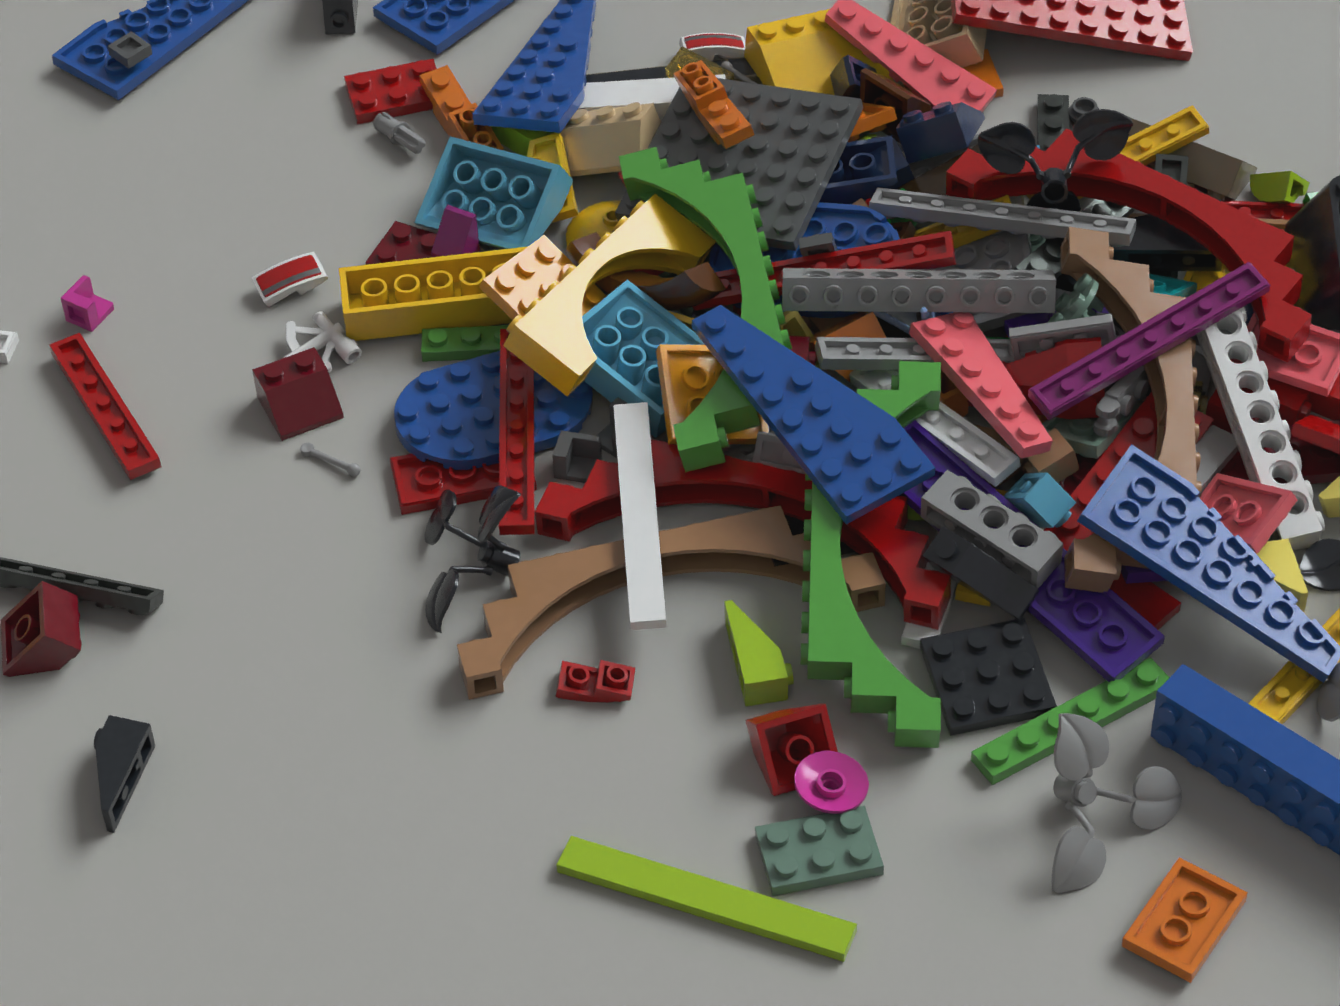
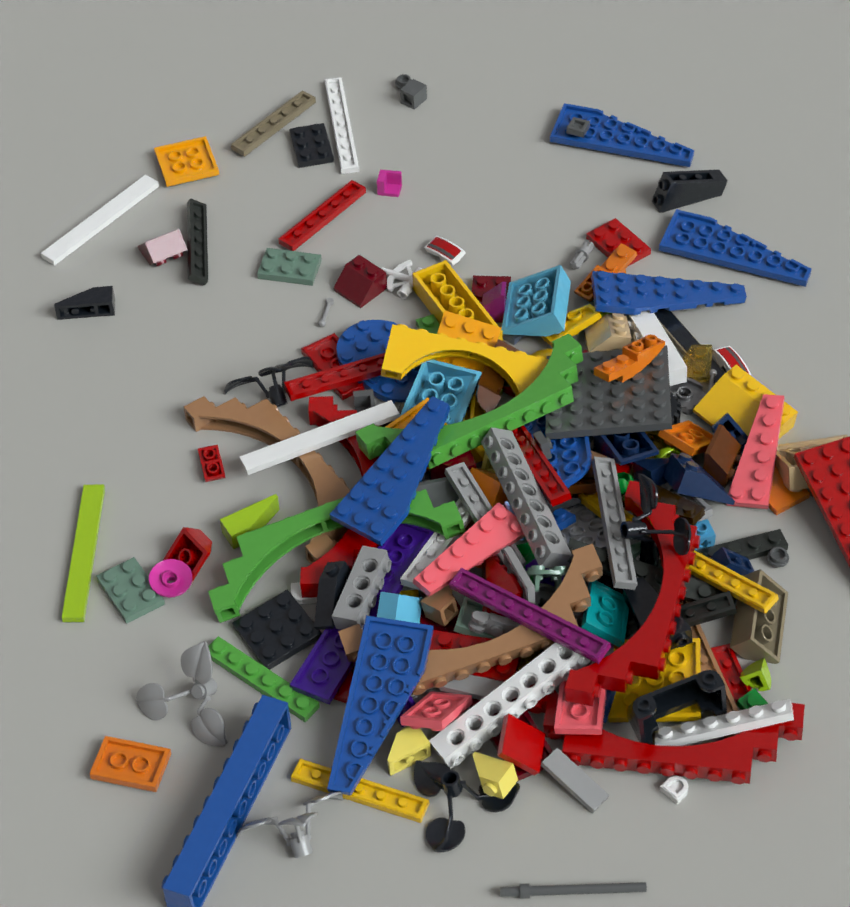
camera: 70 degrees right, 0 degrees up
(194, 479) = (289, 266): none -> sand green plate

